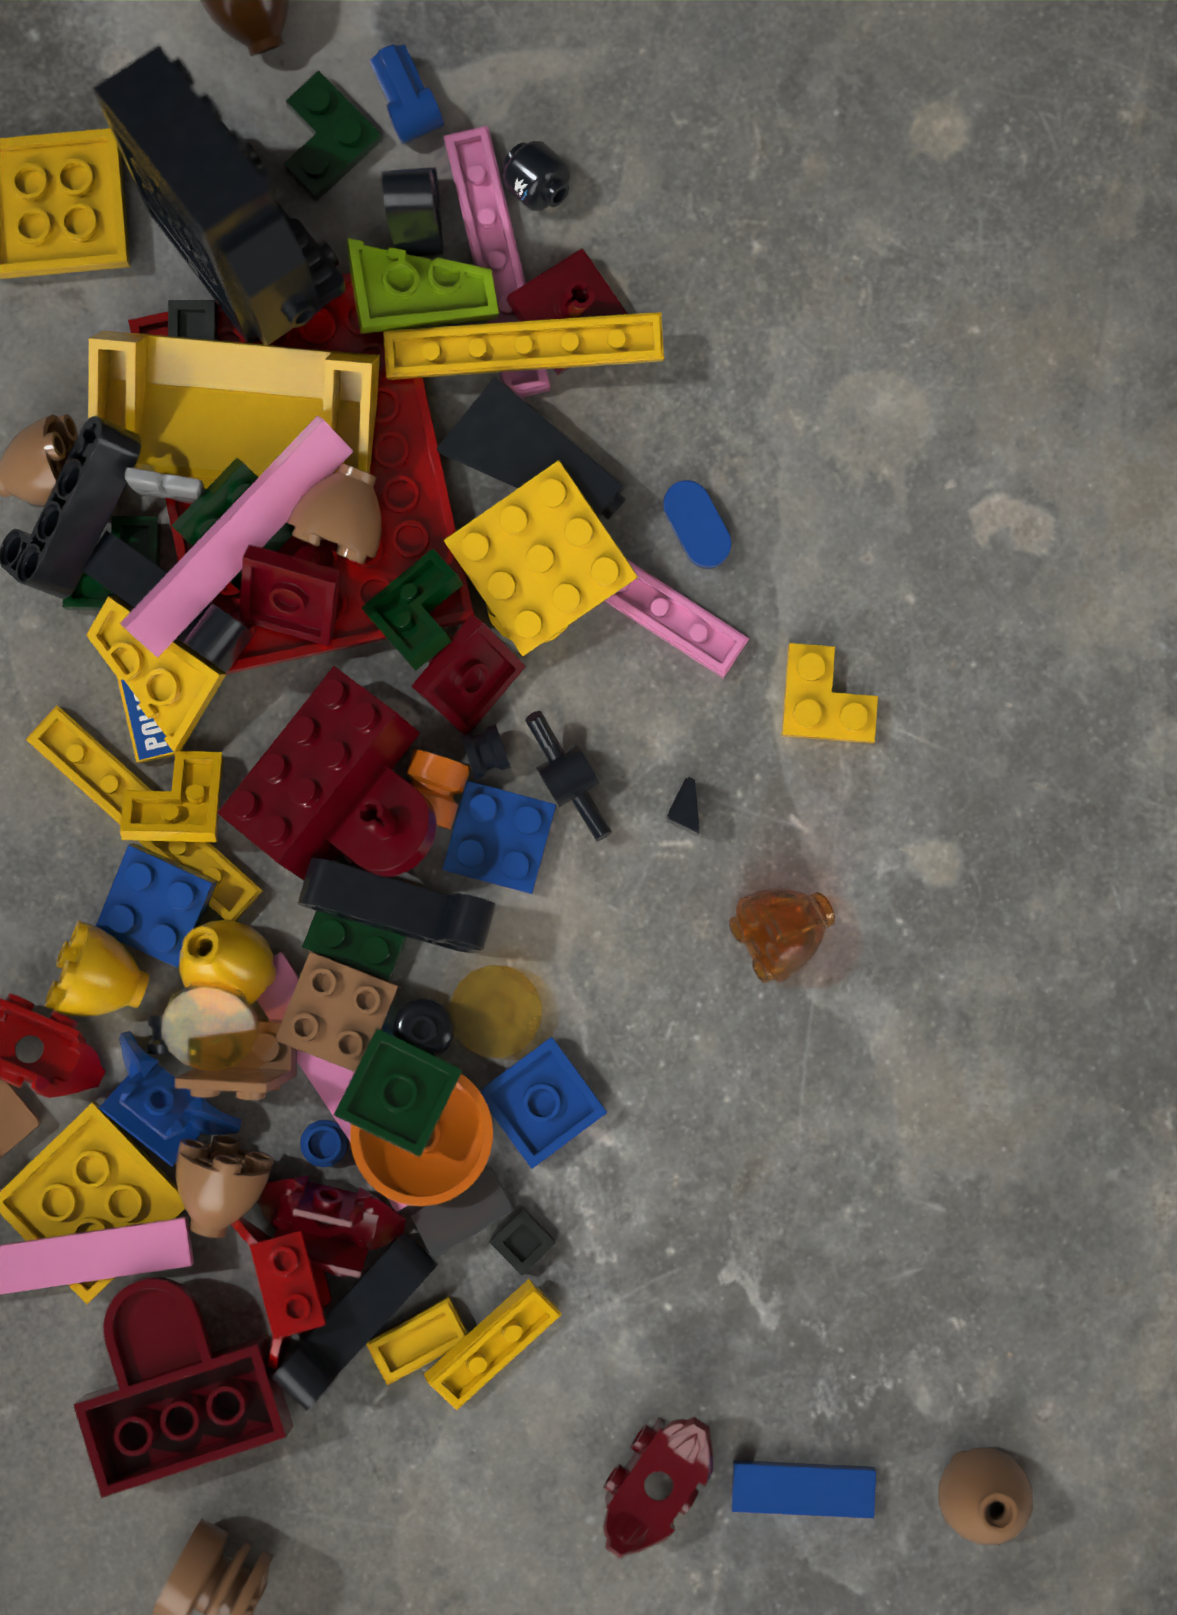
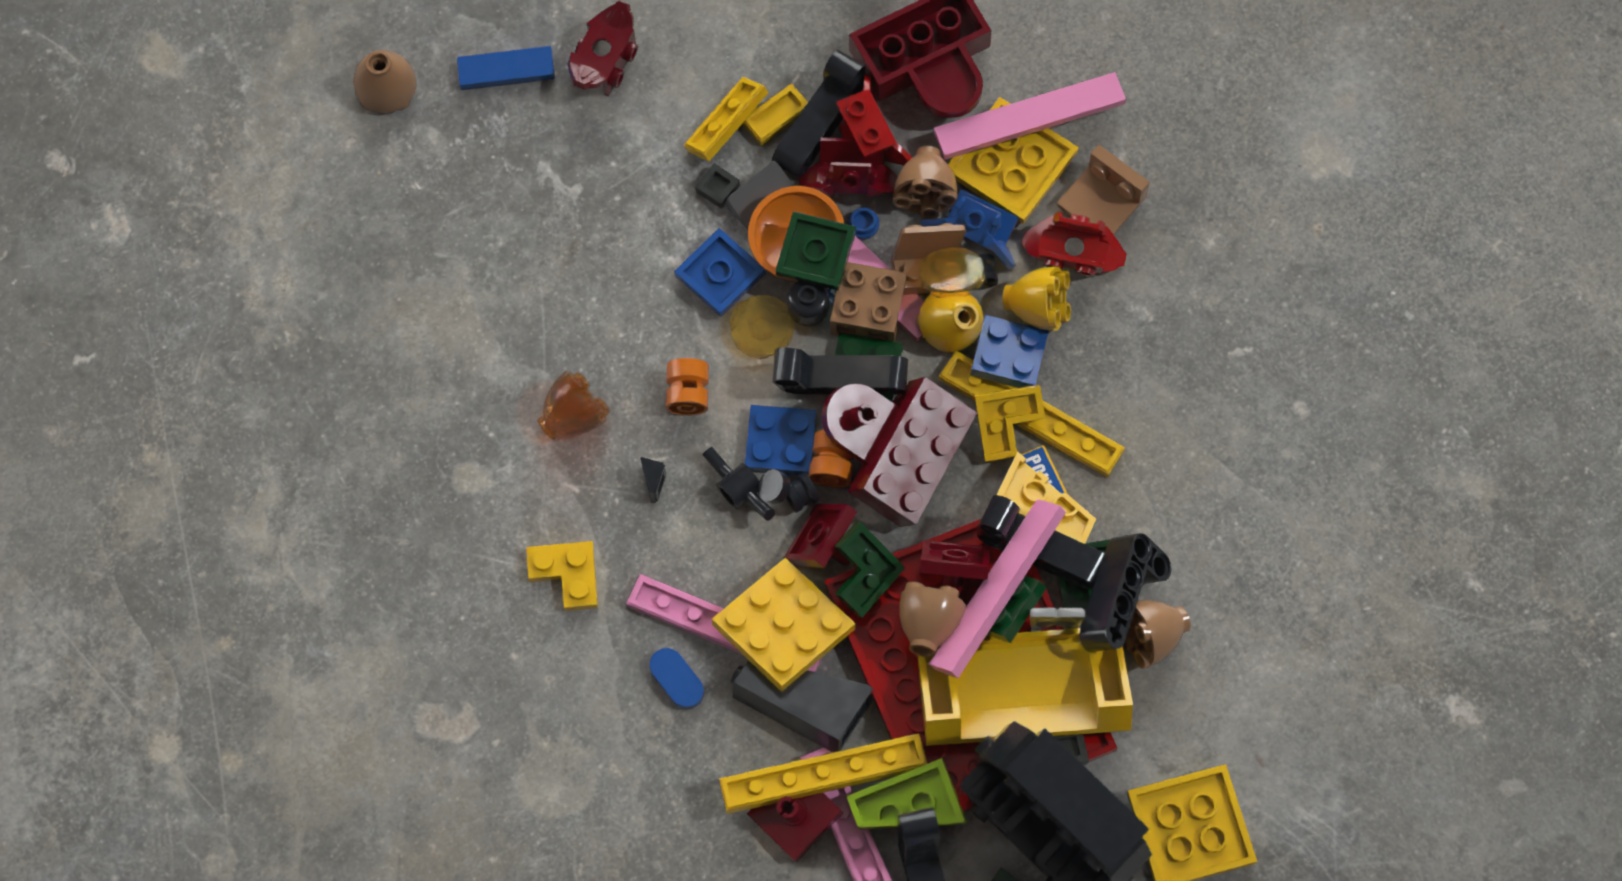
camera: 175 degrees right, 15 degrees down
(520, 756) = (774, 486): none -> tile
(612, 948) = (687, 385): none -> orange wheel

